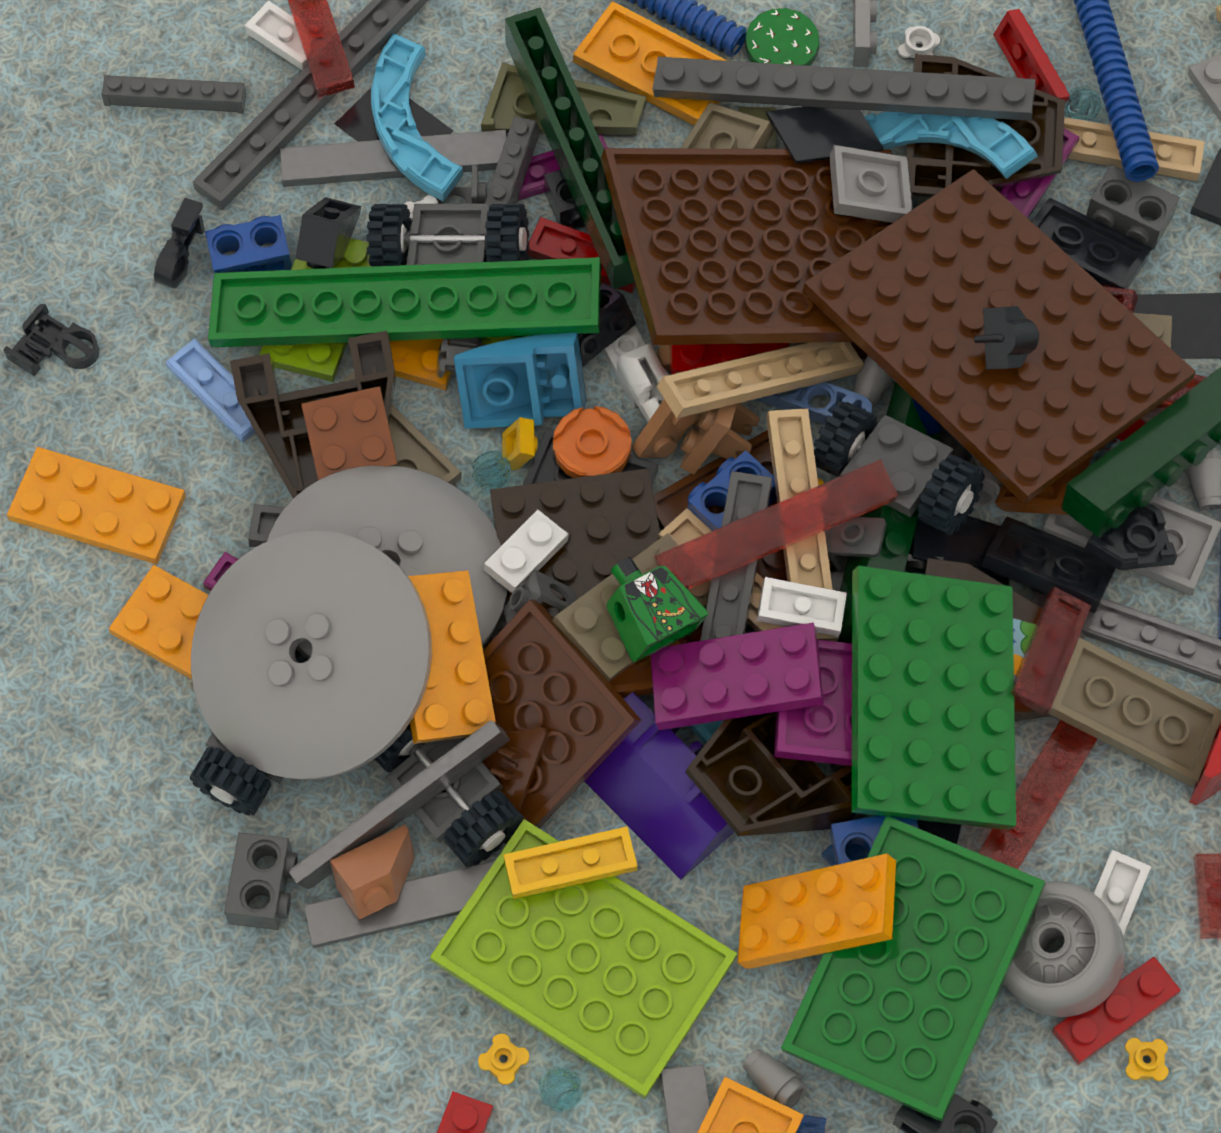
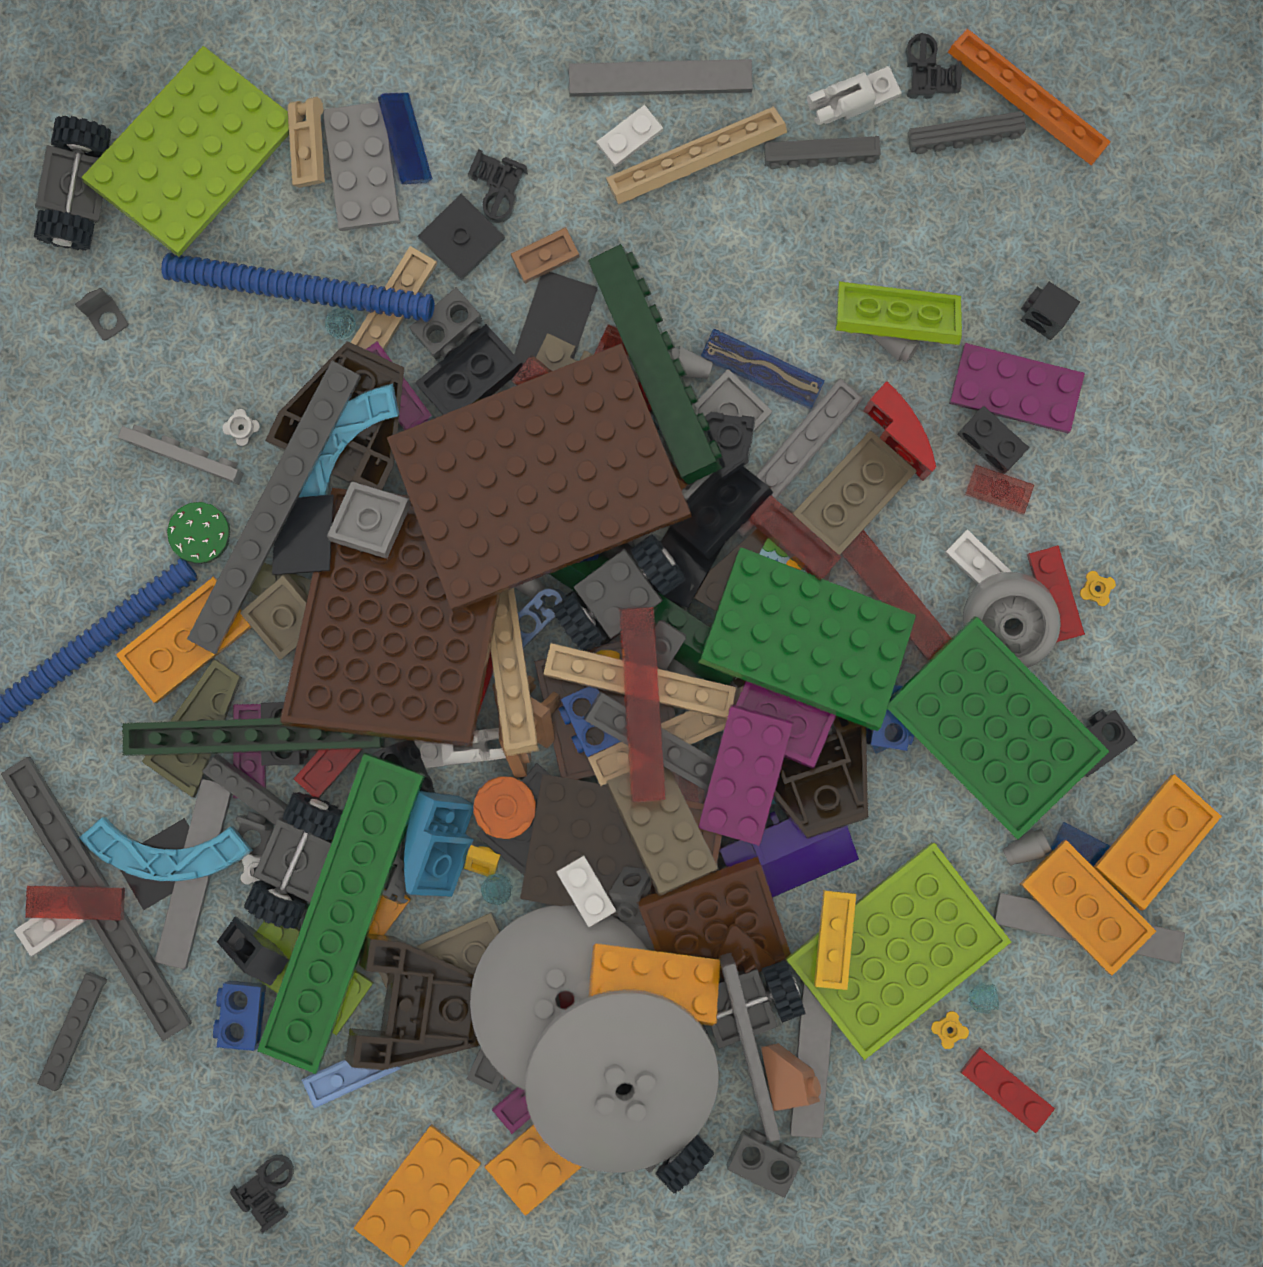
camera: 70 degrees left, 20 degrees up
(173, 259) = (228, 1076): black piece -> none
(349, 432) = (440, 992): dark orange plate -> none
(651, 609) = (678, 820): green torso -> none
(798, 604) = (710, 708): white plate -> none
(817, 911) = (933, 779): light orange plate -> none
(1007, 337) = (560, 478): black piece -> none
(1027, 54) = (292, 348): red plate -> none

